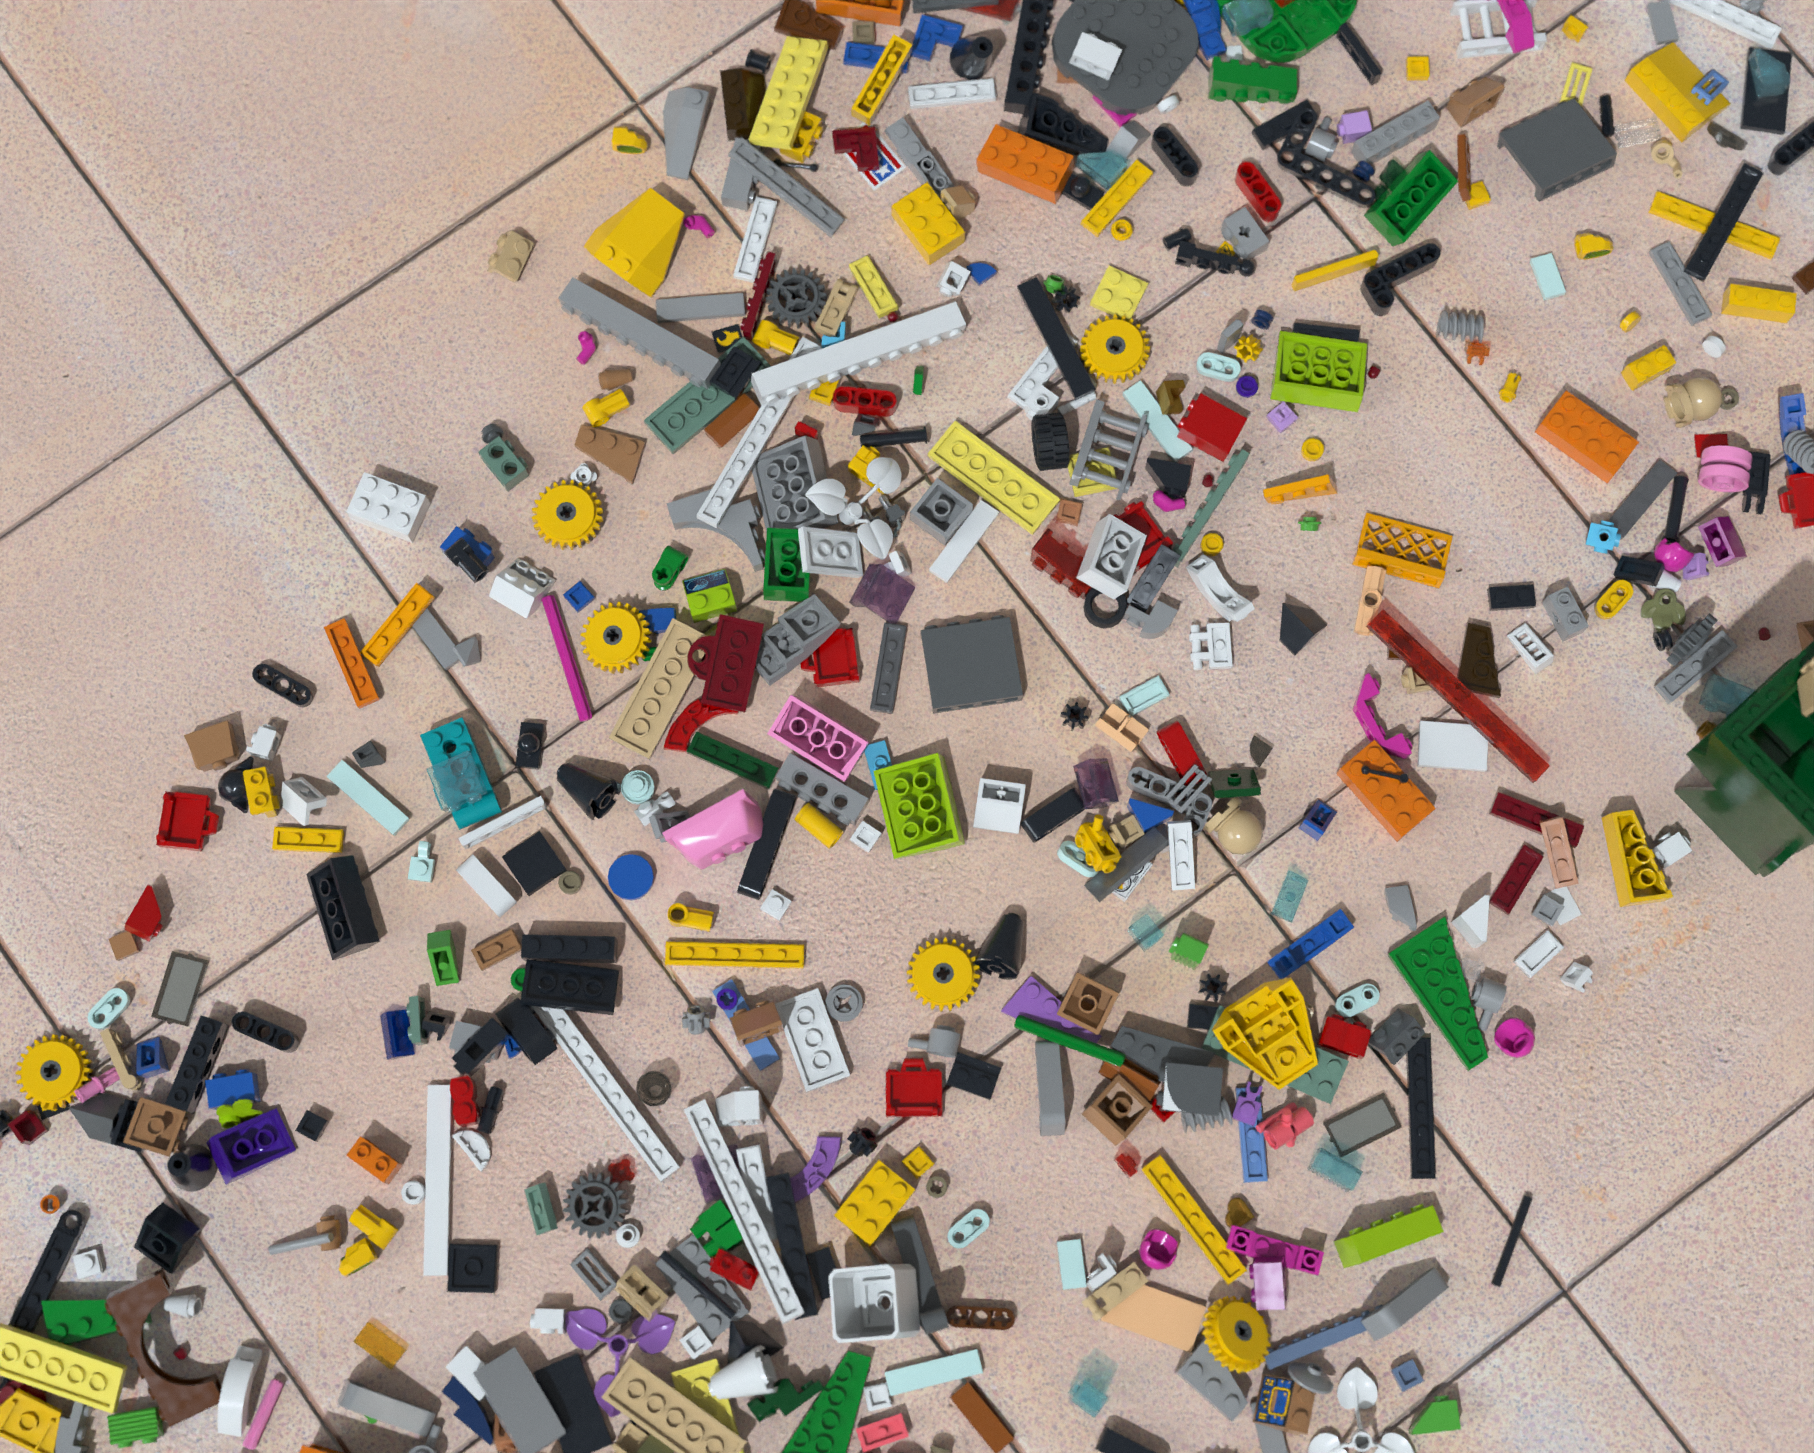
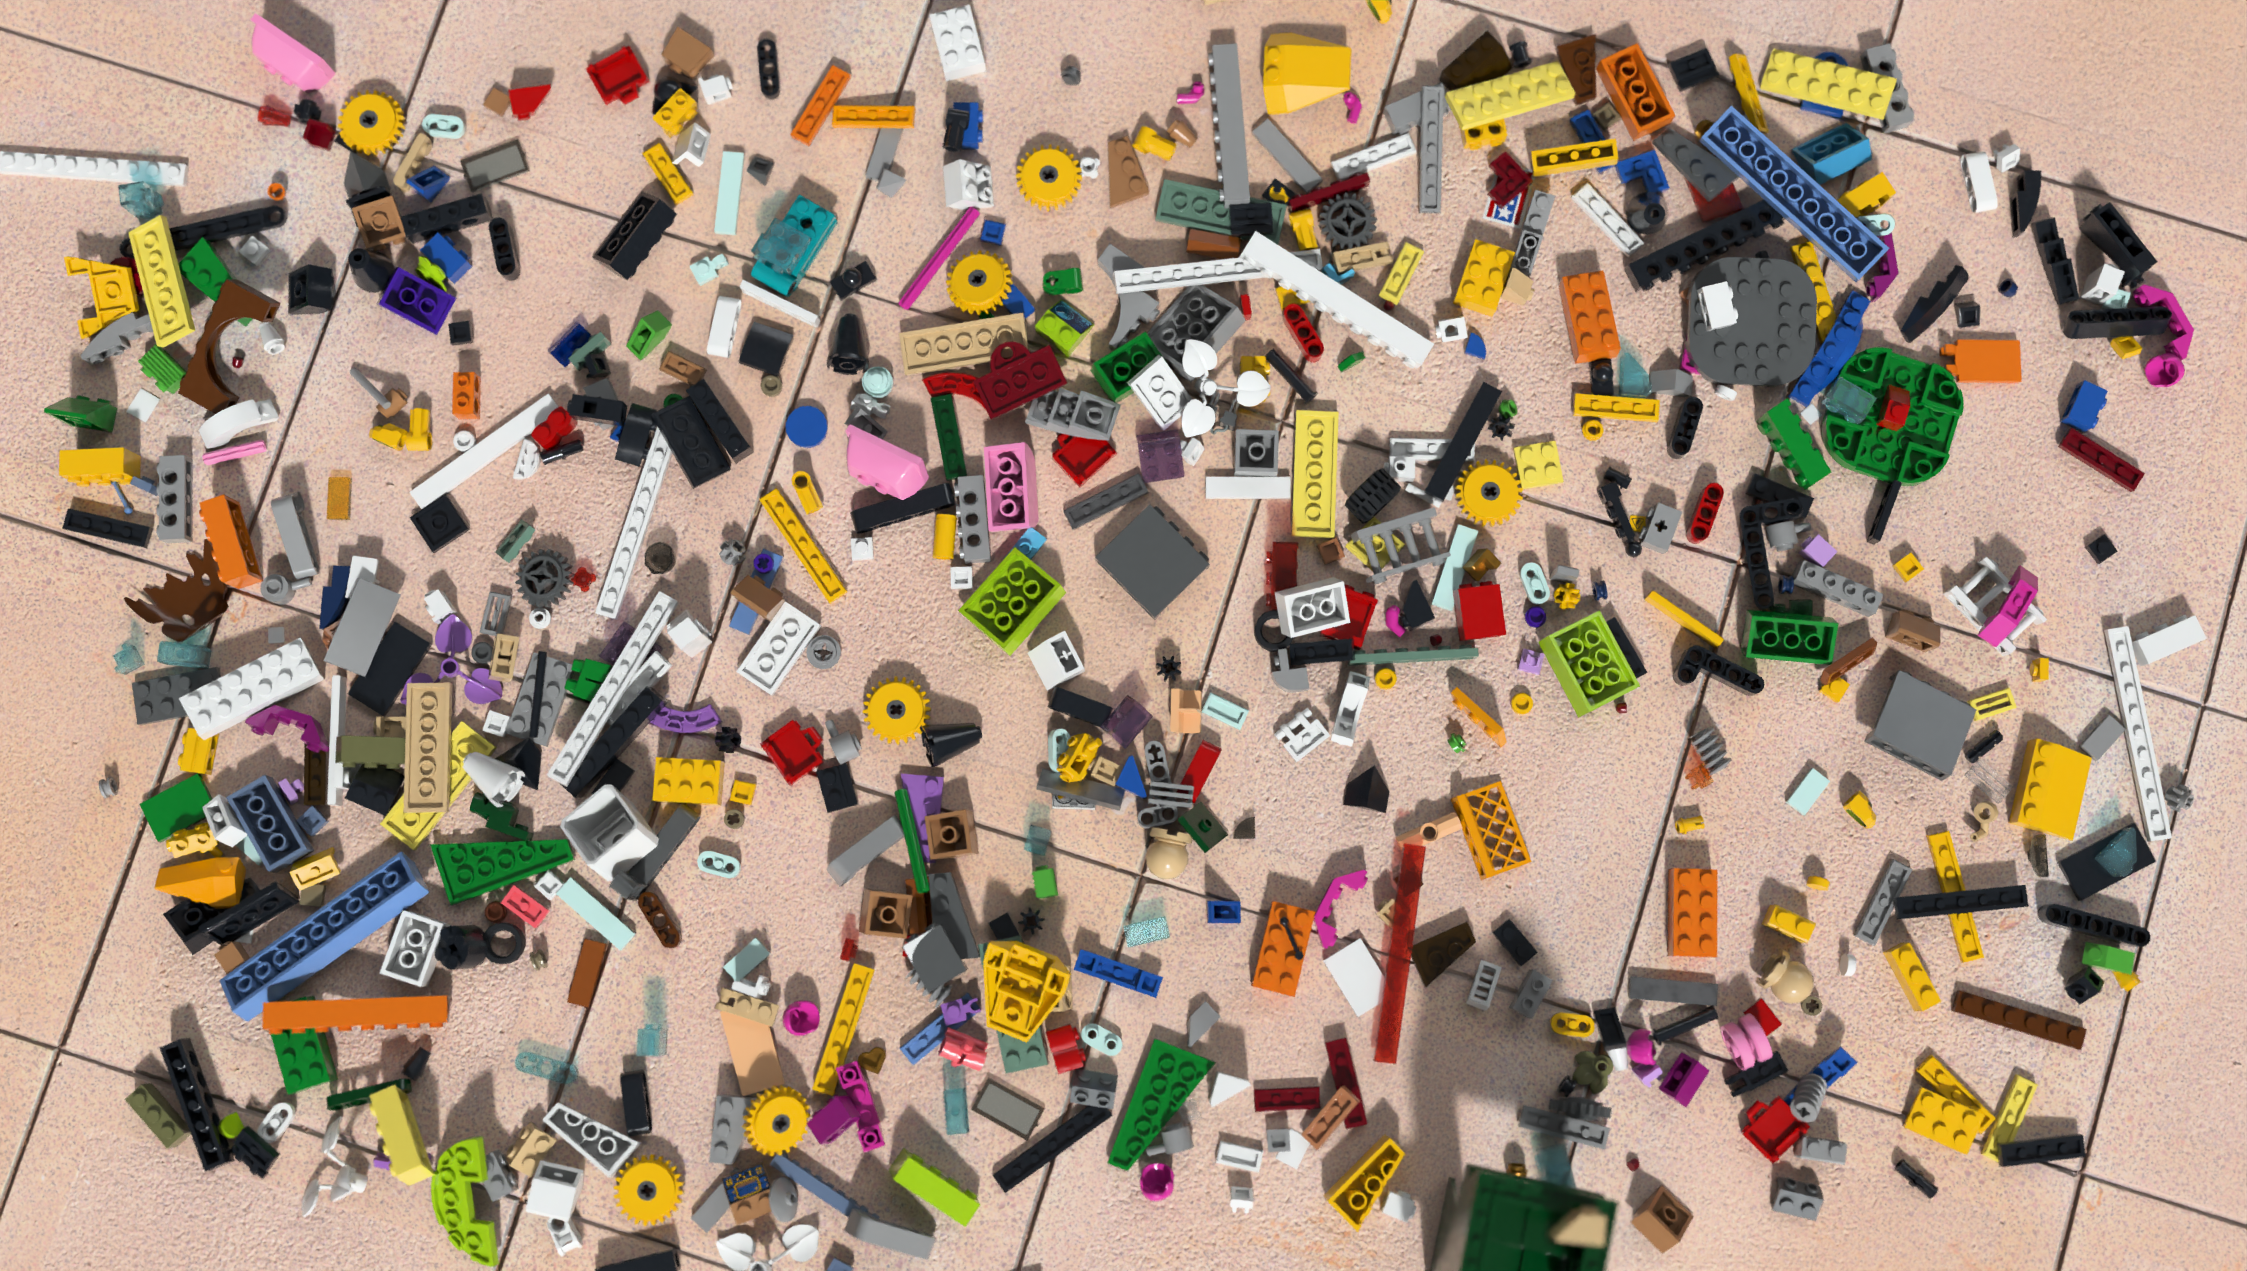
camera: 55 degrees right, 5 degrees up
(97, 1085) = (381, 159): bright pink axle -> none
(500, 465) = (1052, 101): sand green brick -> none
(683, 125) = (1426, 36): light grey wedge -> none
(734, 1269) = (566, 711): red hinge -> none
(813, 167) = (1449, 130): black hinge -> none
(864, 424) = (1285, 346): dark grey slope -> none
(1057, 128) = (1637, 319): black wedge -> none
(1181, 855) = (1116, 825): white plate -> none
(1596, 530) = (1609, 978): medium azure brick -> none
(1704, 93) = (2061, 812): medium blue tile -> none

